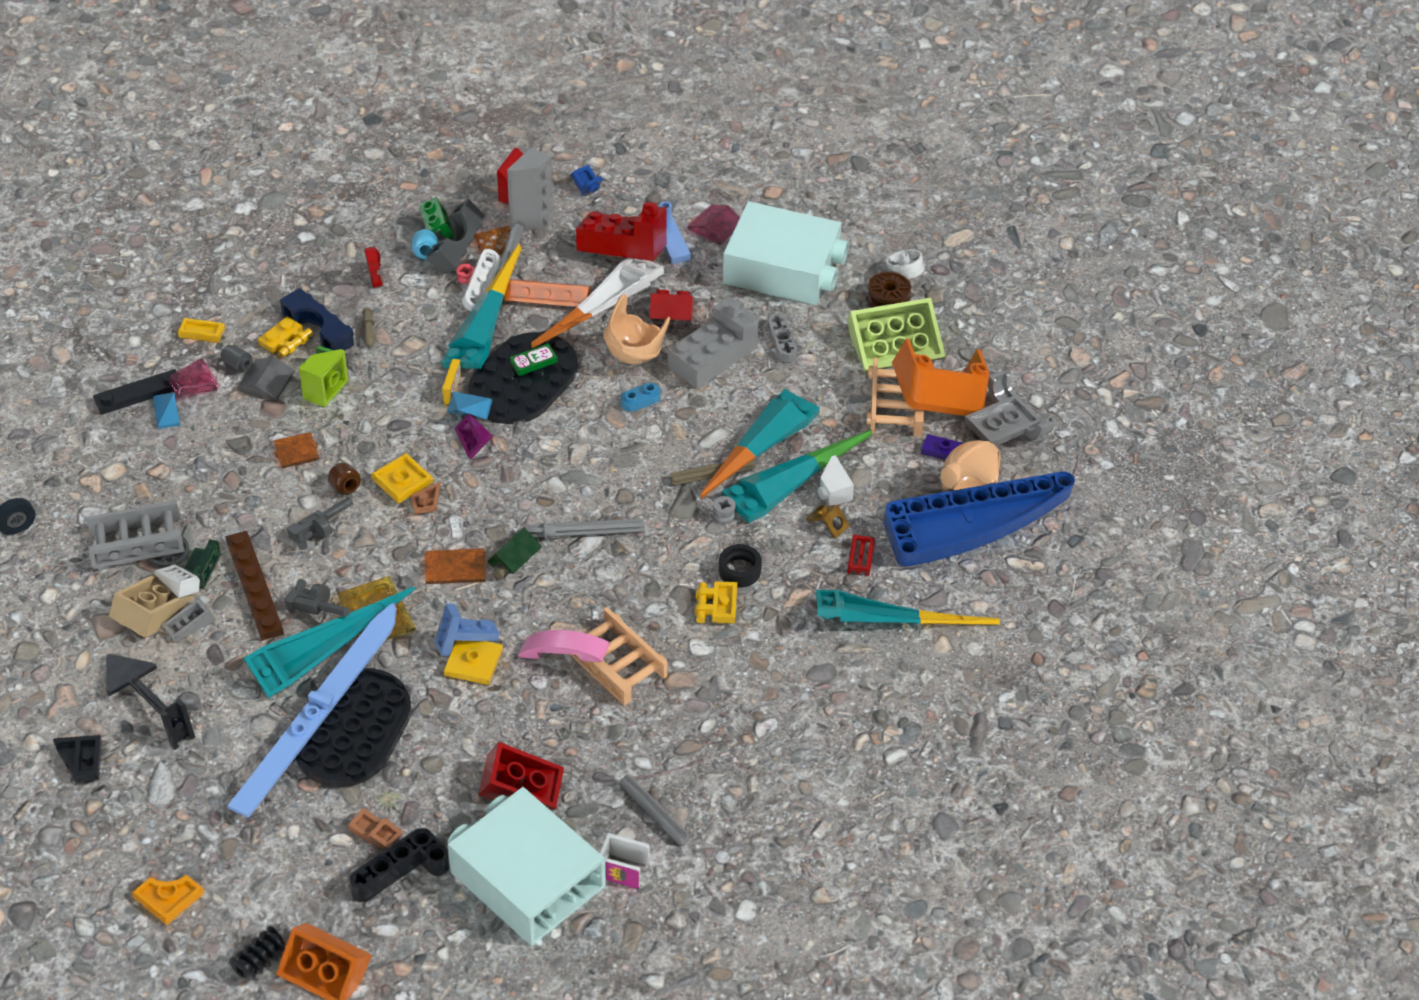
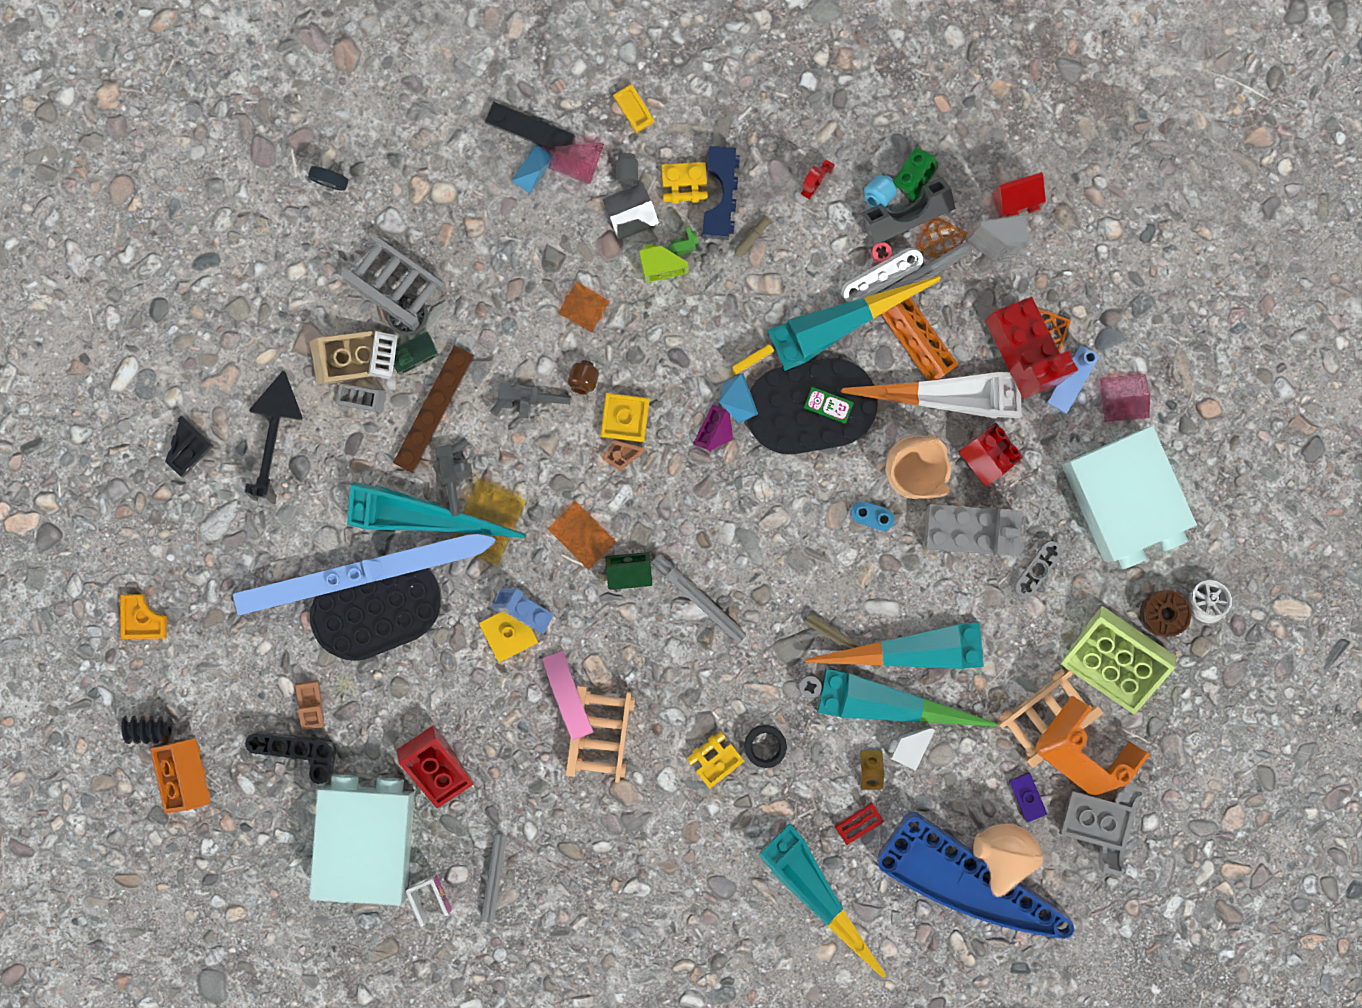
camera: 45 degrees right, 40 degrees up
(586, 179) = (1077, 248): blue bracket -> none

